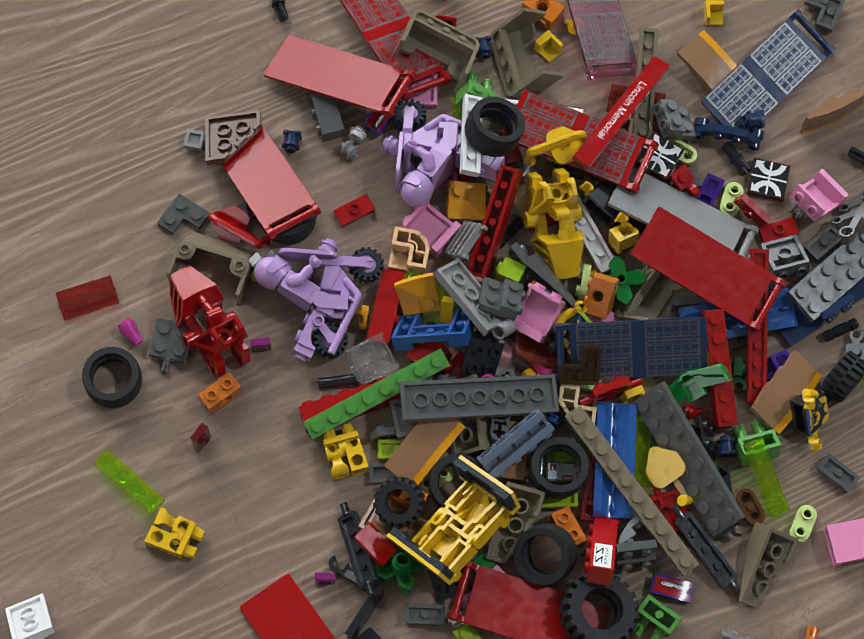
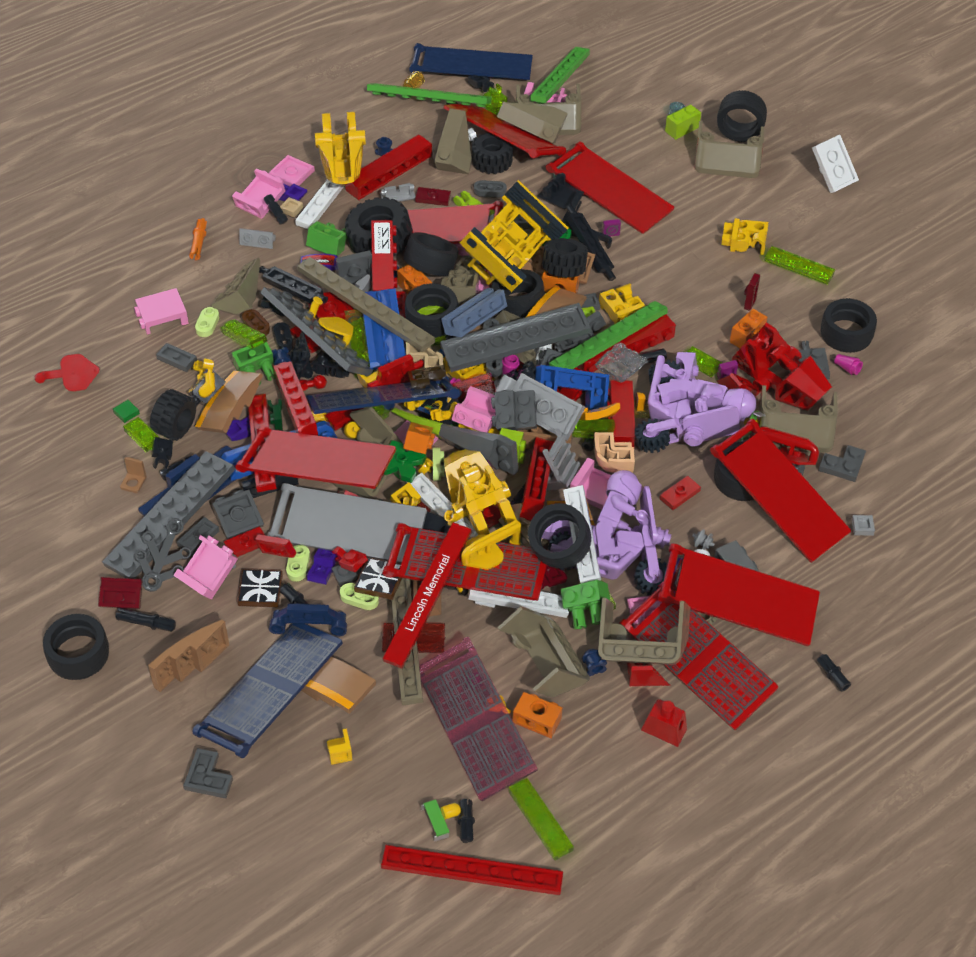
camera: 170 degrees right, 20 degrees down
(87, 298) = (900, 387): clear red piece -> none
(228, 134) = (830, 529): plate -> none
(256, 322) = (735, 381): none -> red slope
(281, 368) = (705, 362): none -> clear neon green plate
(291, 141) = (765, 538): dark blue brick -> none
(375, 544) = (587, 239): red slope -> none
(548, 46) = (522, 679): yellow panel -> none
(674, 120) = (369, 615): dark grey plate -> none
(693, 382) = (317, 383): green plate -> none
(754, 120) = (281, 632): dark blue brick -> none

